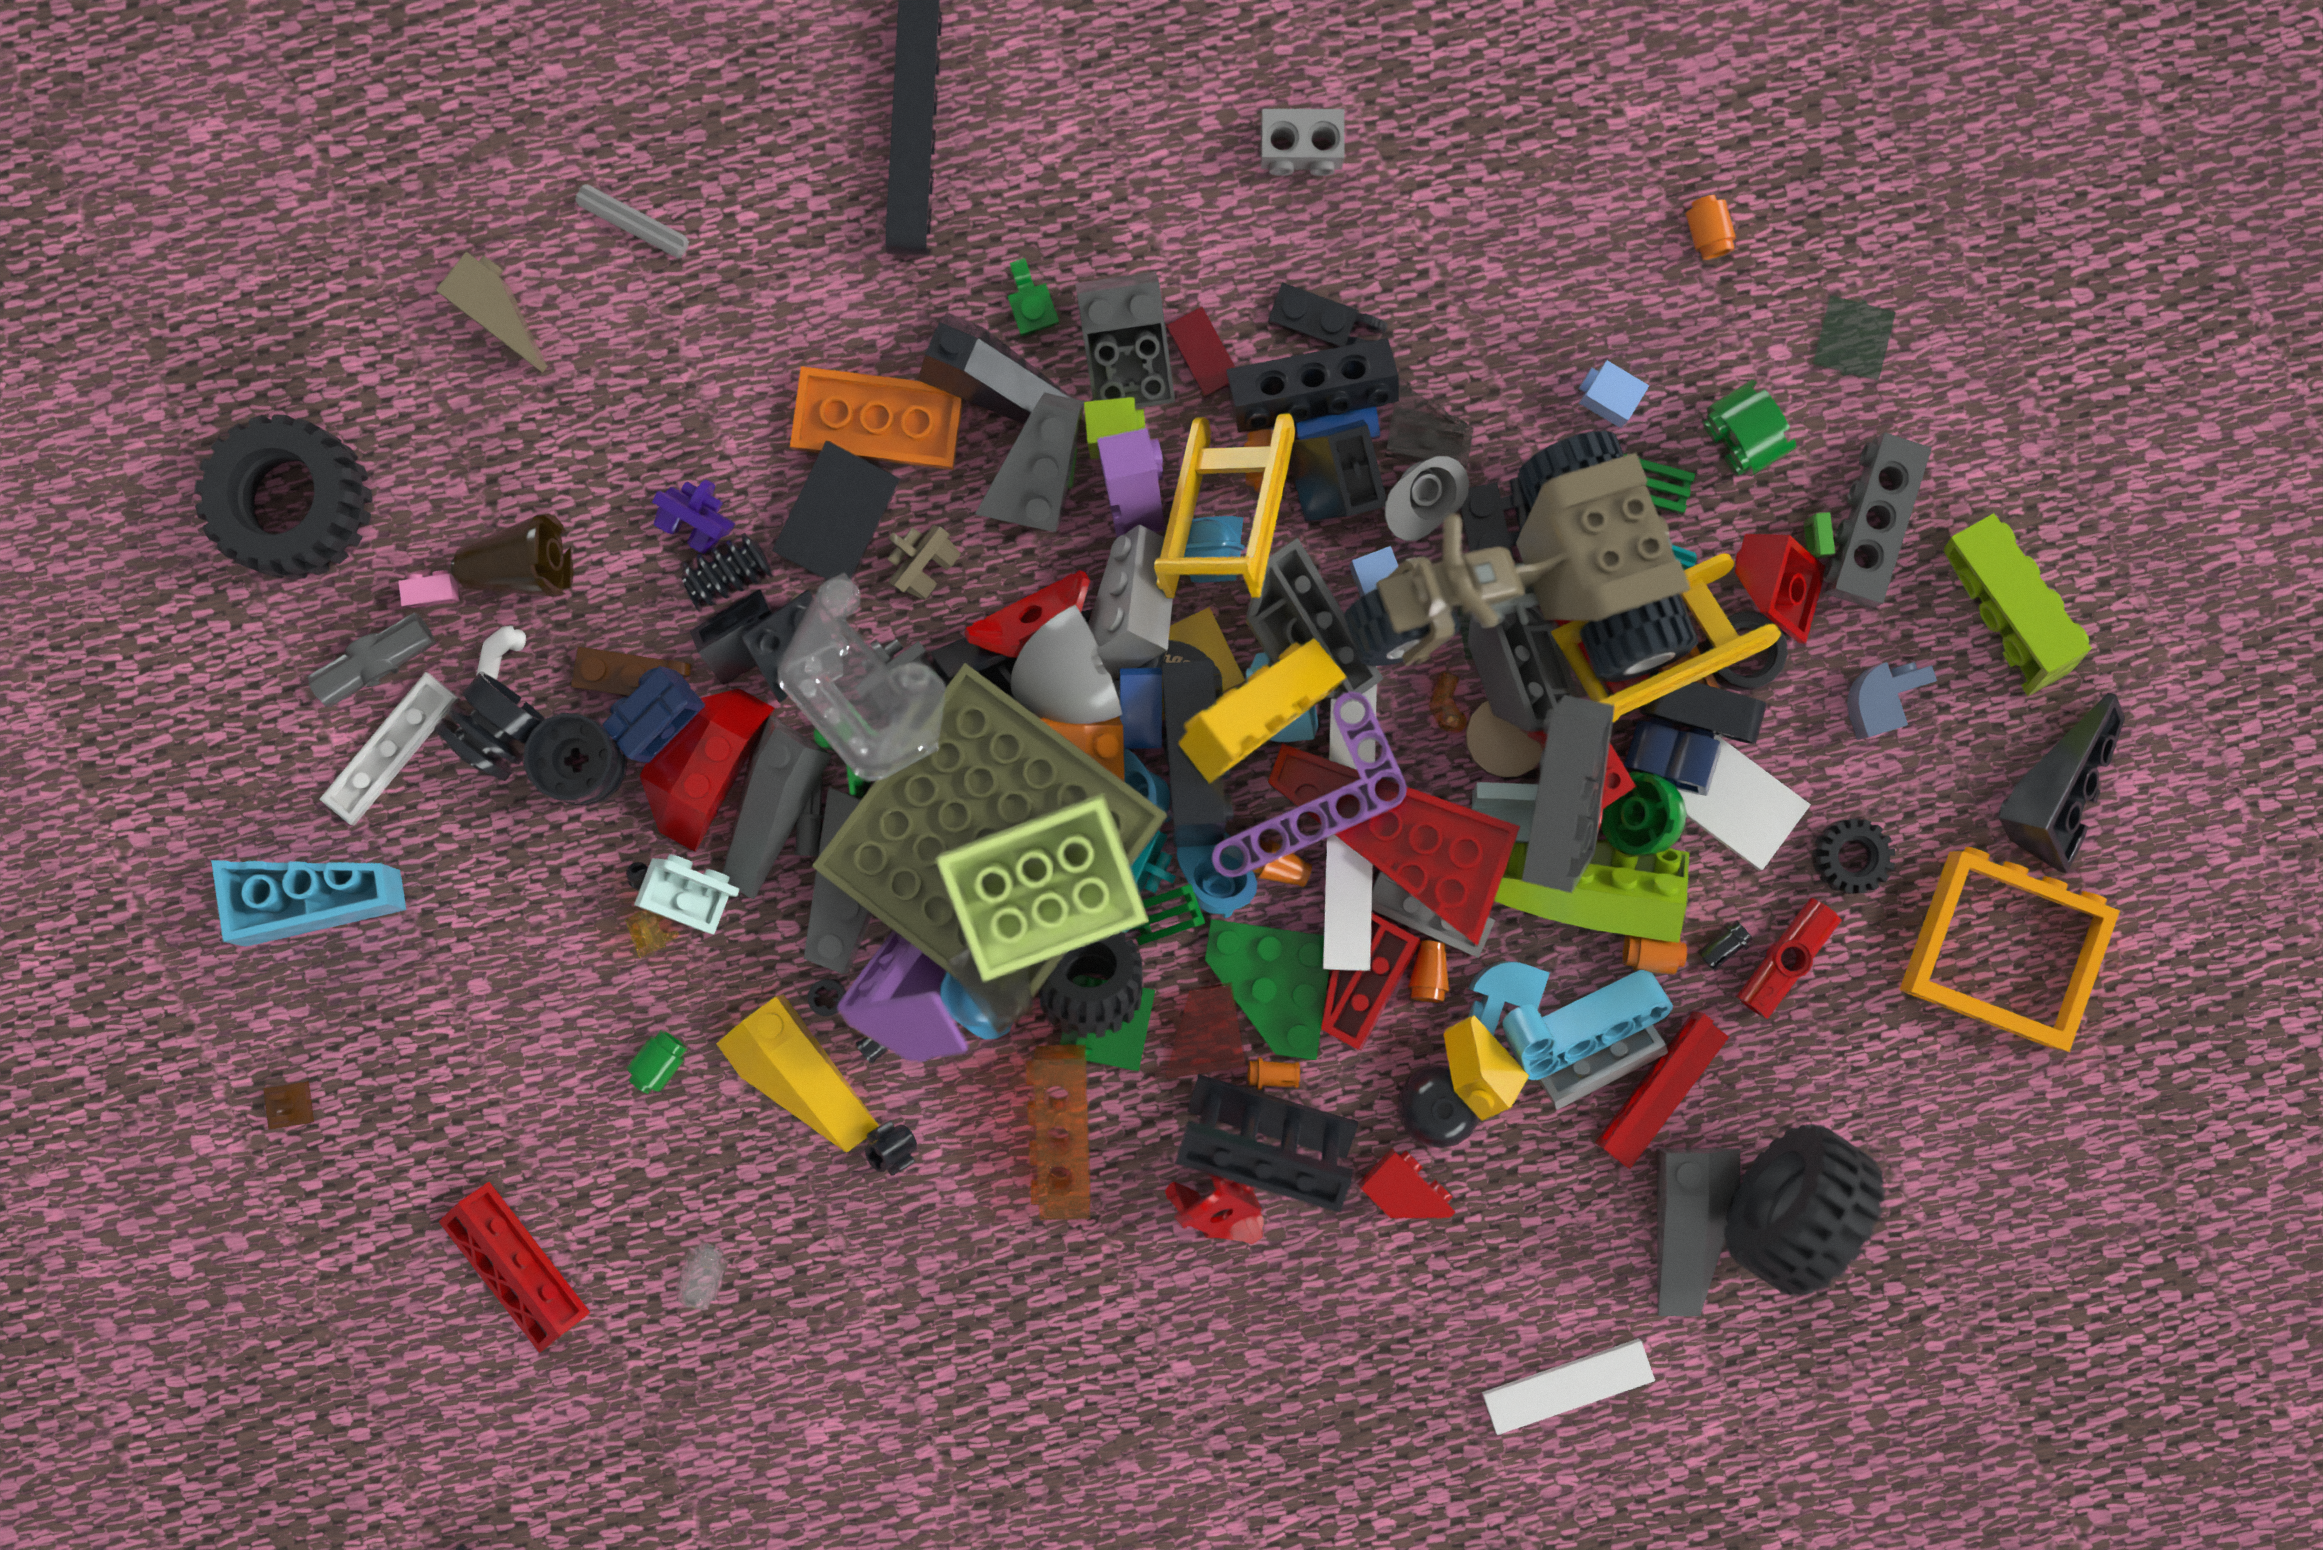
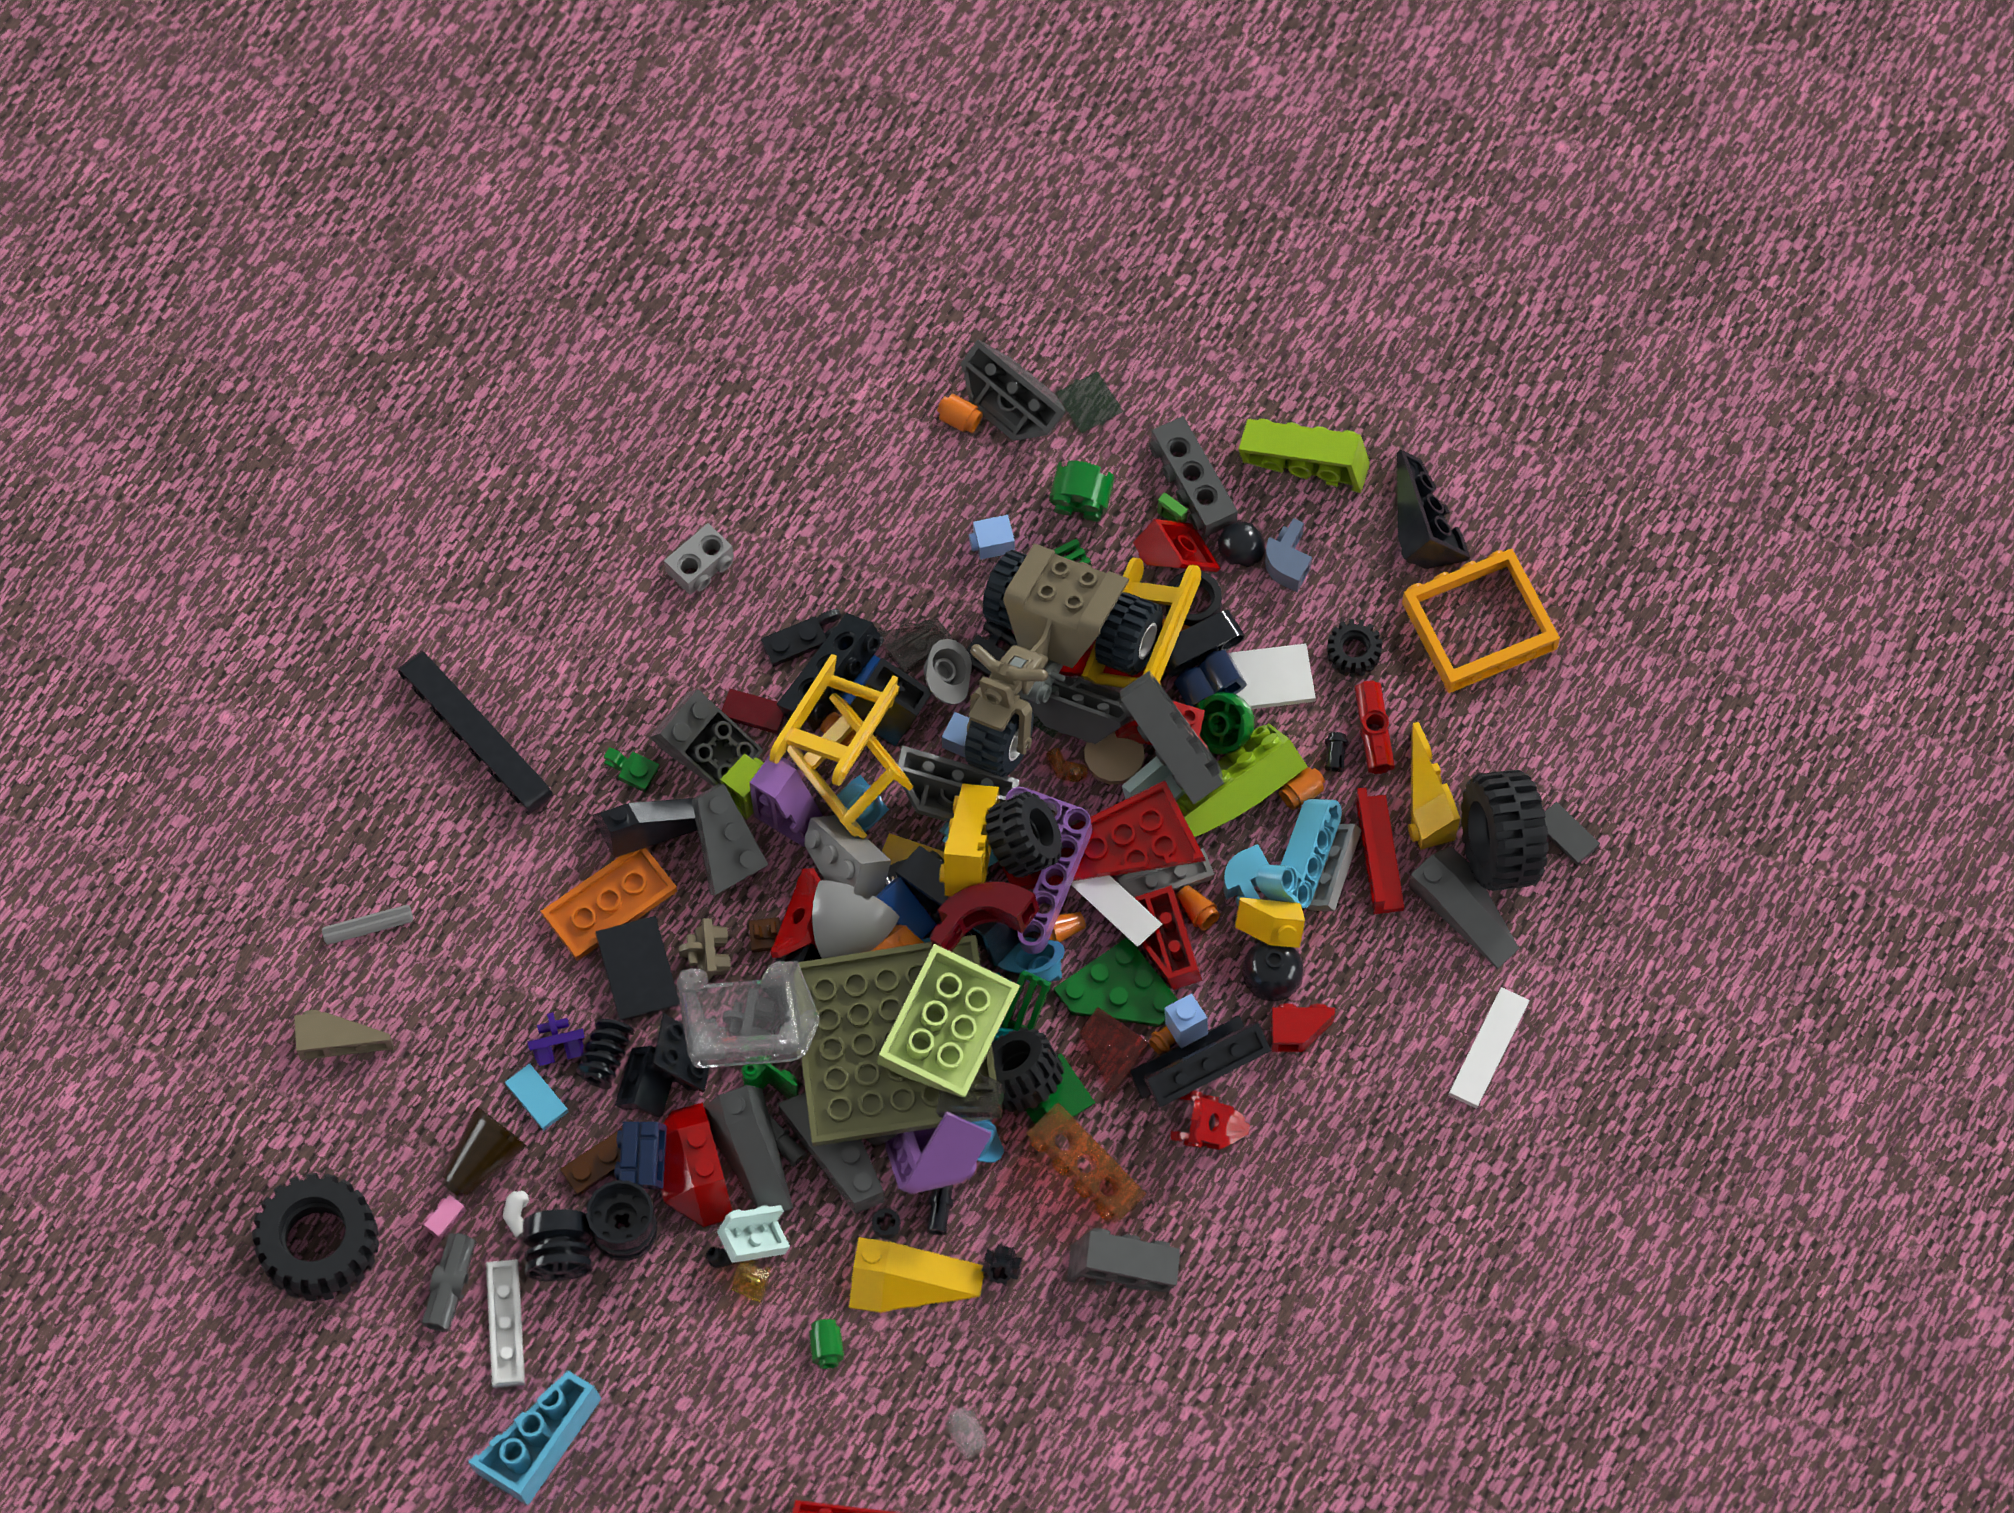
camera: 45 degrees left, 20 degrees down
(626, 551) = (536, 1097): none -> medium azure tile
(992, 593) = (763, 933): none -> reddish brown tile
(1004, 1261) = (1124, 1261): none -> dark grey wedge
(1197, 792) = (983, 904): none -> dark red arch
(1203, 470) = (826, 748): none -> yellow piece
(1296, 1088) = (1186, 1020): none -> light blue brick
(1312, 760) = (1023, 834): none -> black tyre
(1757, 1100) = (1432, 804): none -> yellow wedge
(1781, 255) = (1009, 394): none -> dark grey wedge
(1852, 637) = (1241, 544): none -> black hair
(1872, 1267) = (1569, 834): none -> dark grey tile

